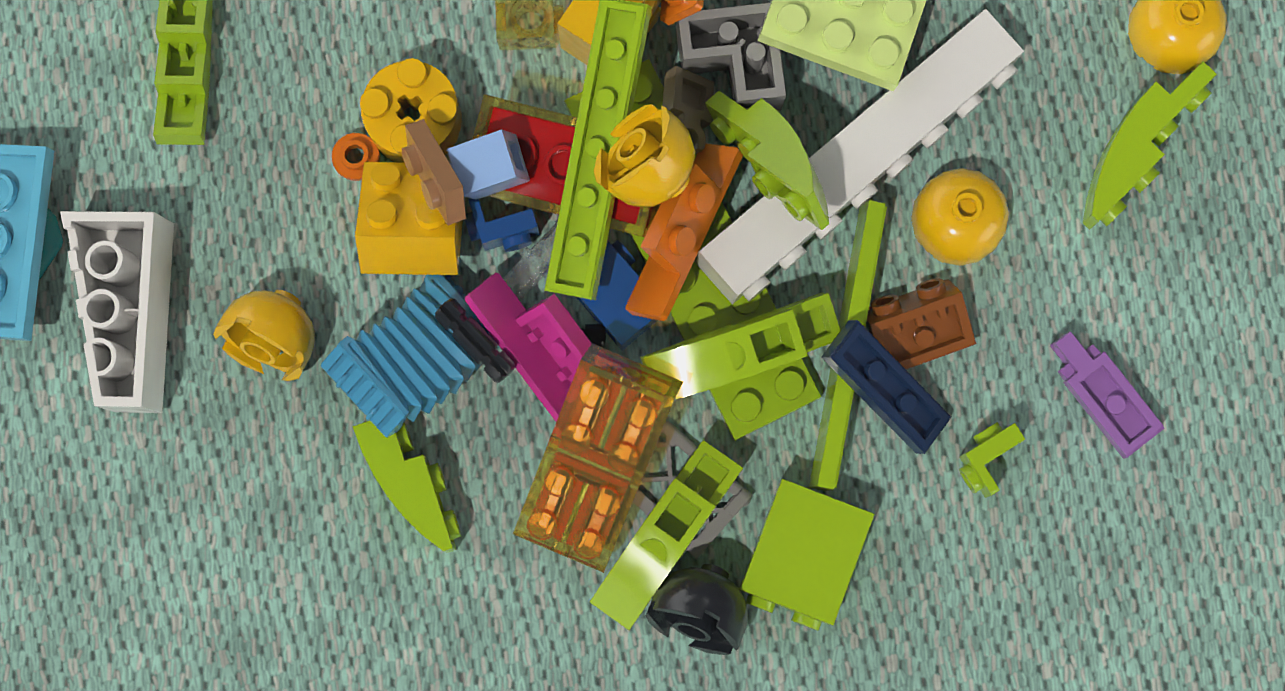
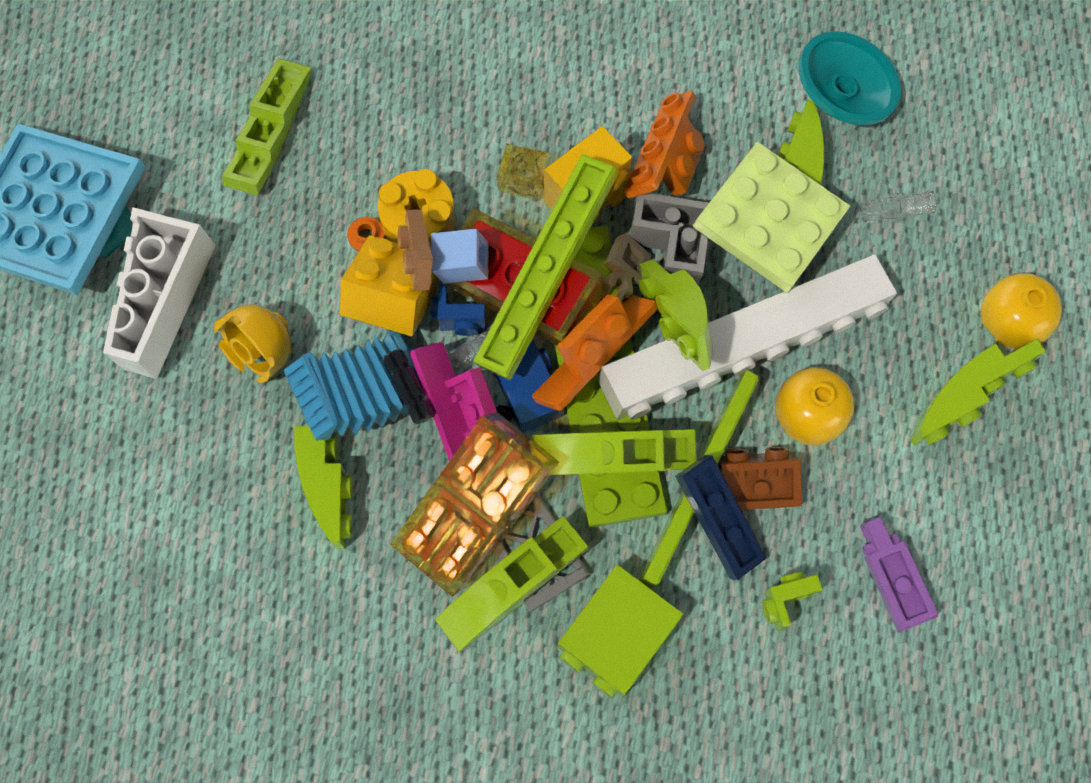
camera: 15 degrees right, 10 degrees down
(649, 158) = (583, 278): yellow cylinder -> none
(702, 607) = (522, 649): black cylinder -> none

